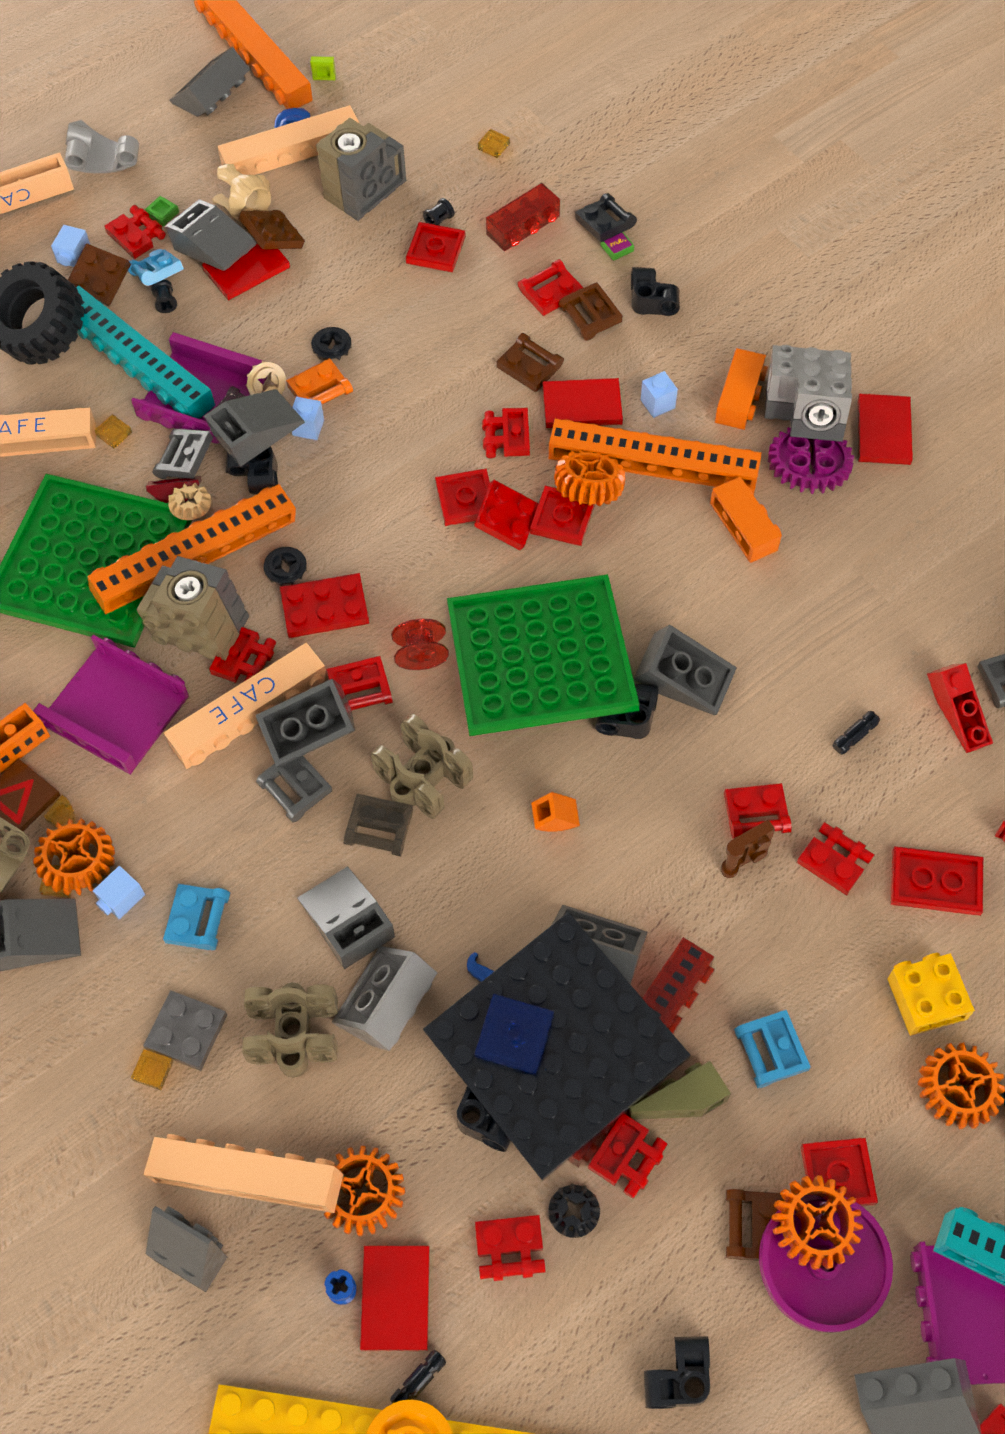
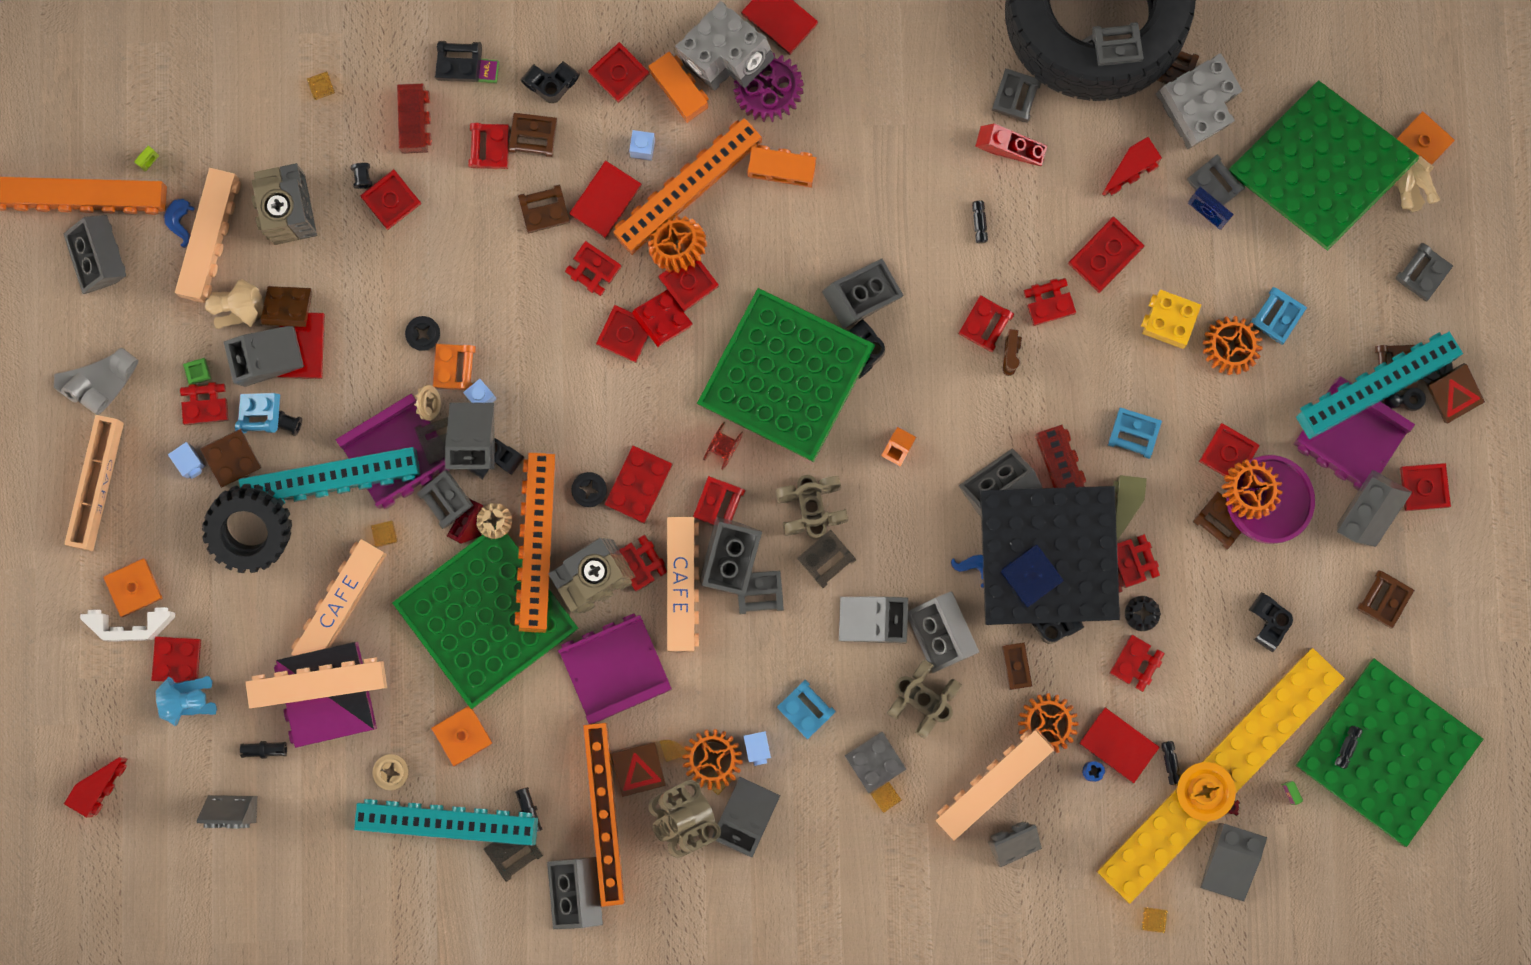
camera: 55 degrees left, 20 degrees up
(405, 1107) = (1017, 666): none -> reddish brown plate
(709, 337) = (618, 72): none -> red plate

